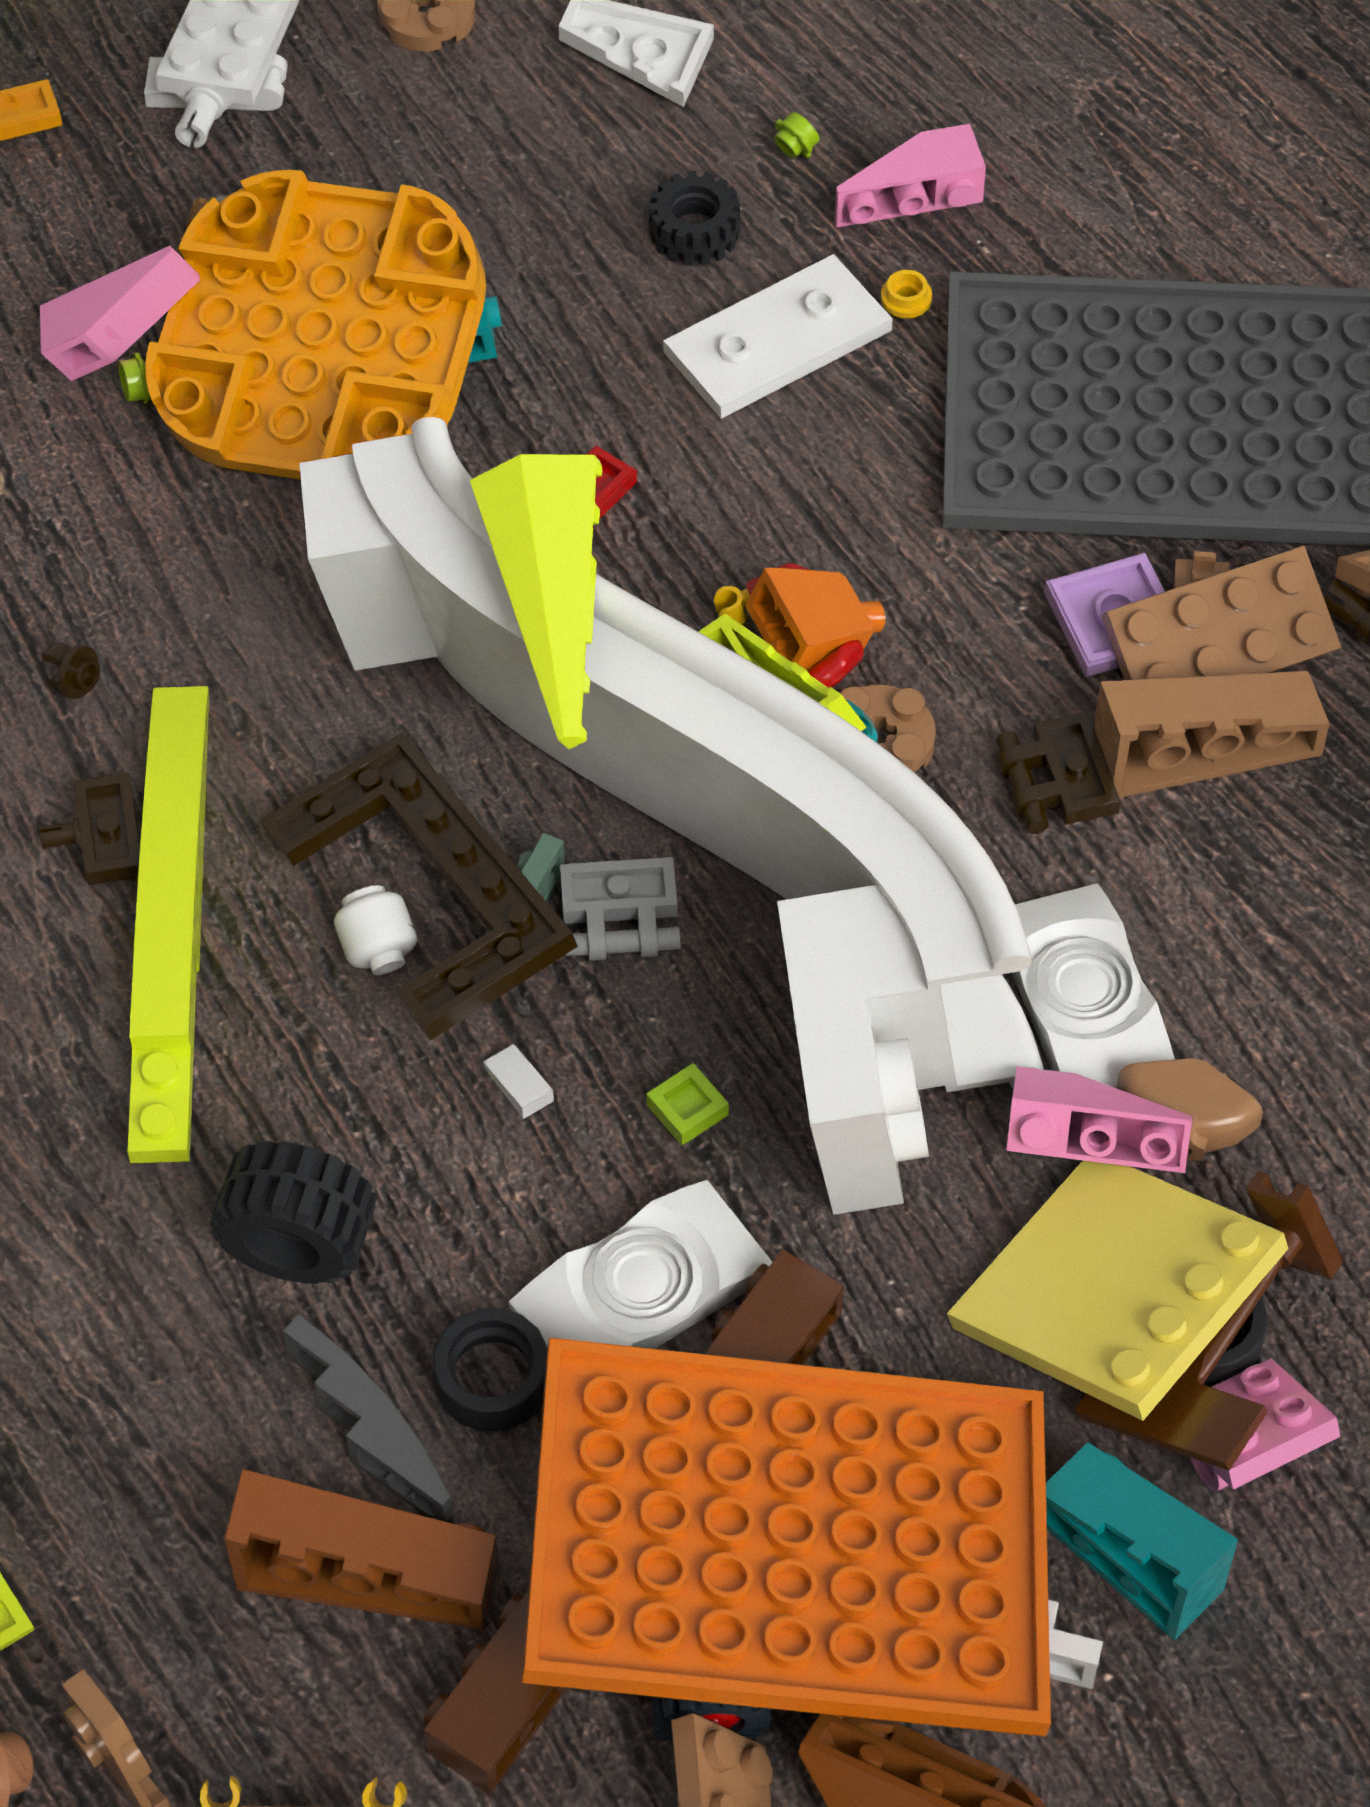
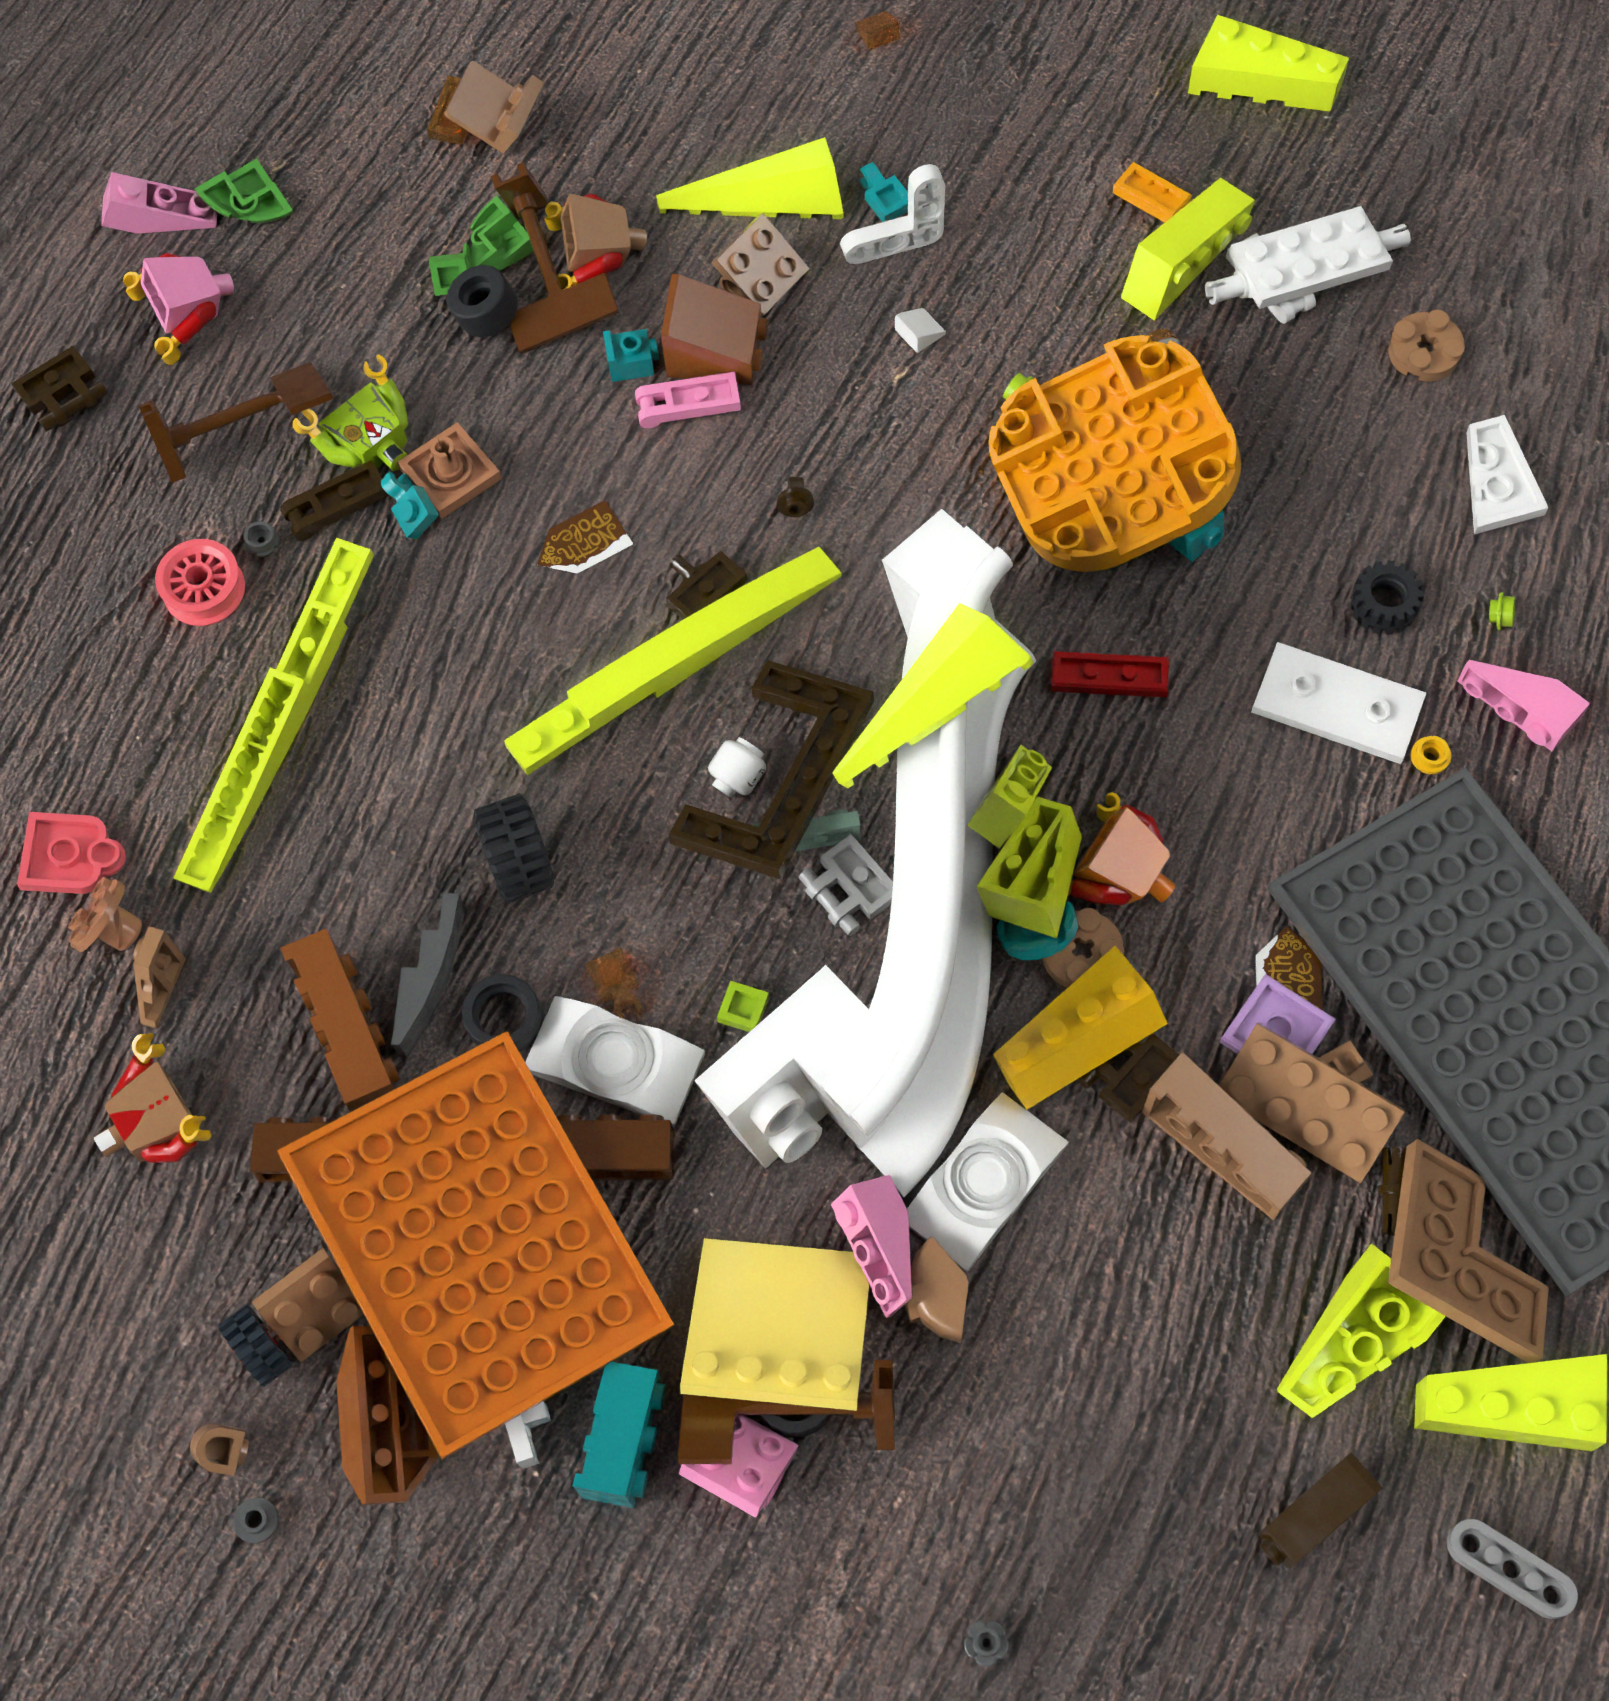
camera: 60 degrees right, 10 degrees up
(111, 313) = (1038, 344): bright pink slope -> none
(113, 123) = (1185, 246): none -> neon yellow wedge
(519, 1081) = (700, 908): white piece -> none
(537, 1224) = (614, 979): none -> clear orange plate
(985, 762) = (1080, 1029): none -> yellow wedge
(1039, 558) = (1292, 965): none -> reddish brown sticker

